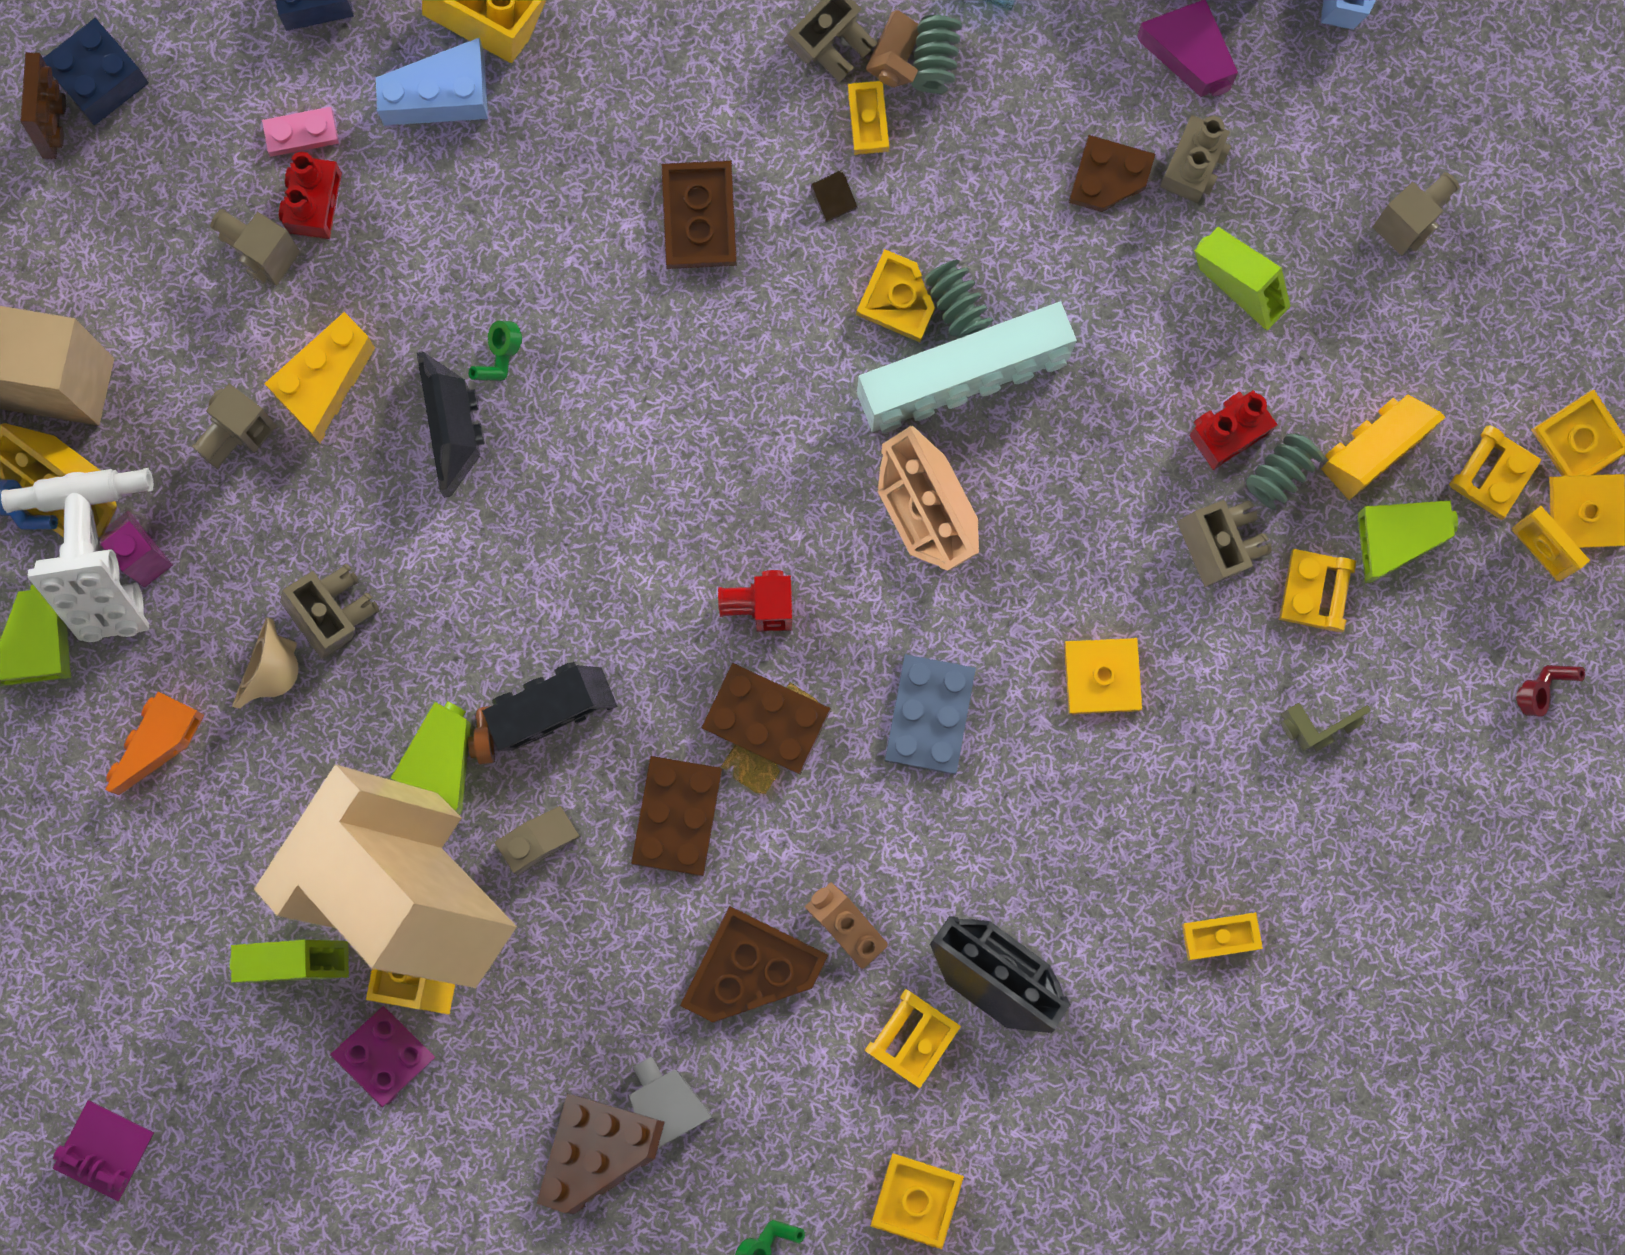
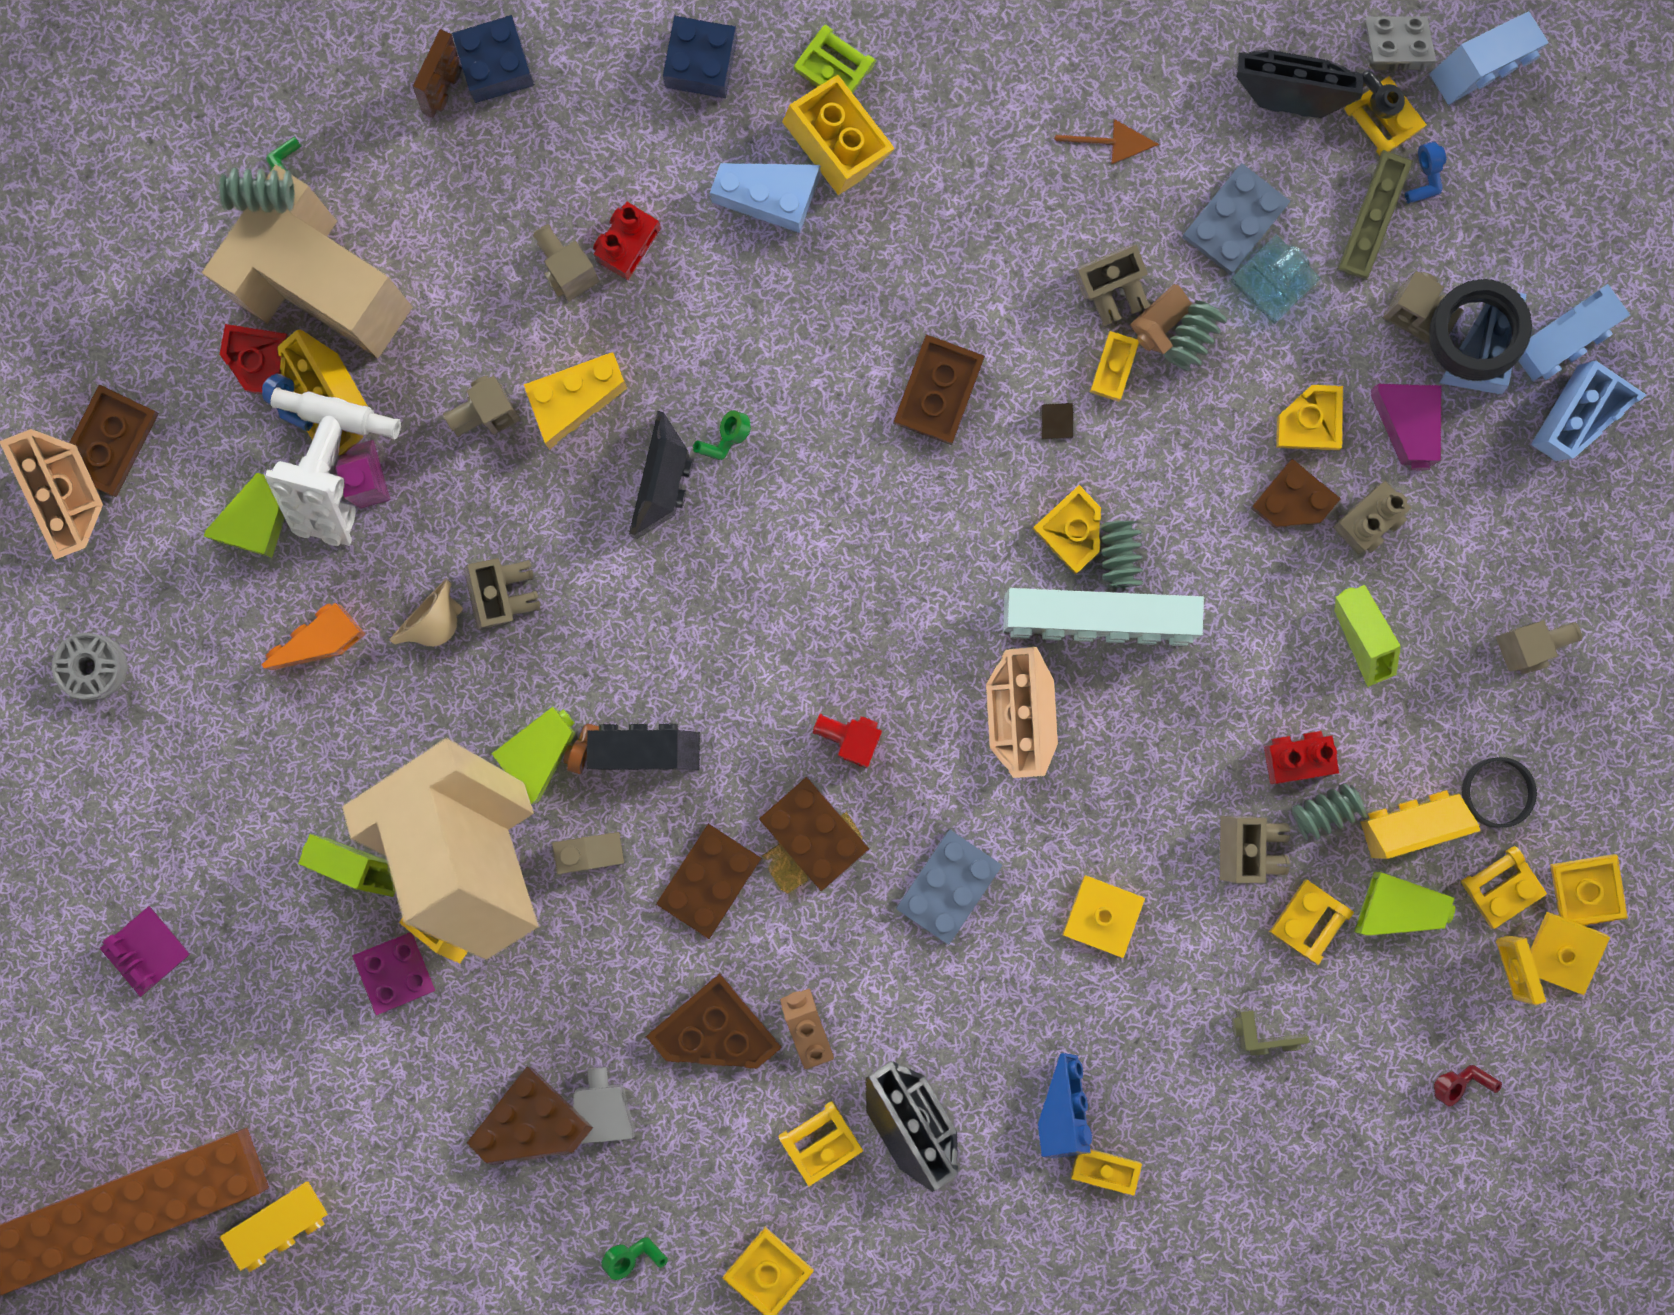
camera: 25 degrees right, 5 degrees up
(300, 131) = (641, 179): bright pink plate -> none
(1092, 88) = (1313, 420): none -> yellow plate
(1152, 898) = (1063, 1116): none -> blue slope
(1469, 352) = (1531, 785): none -> black tyre

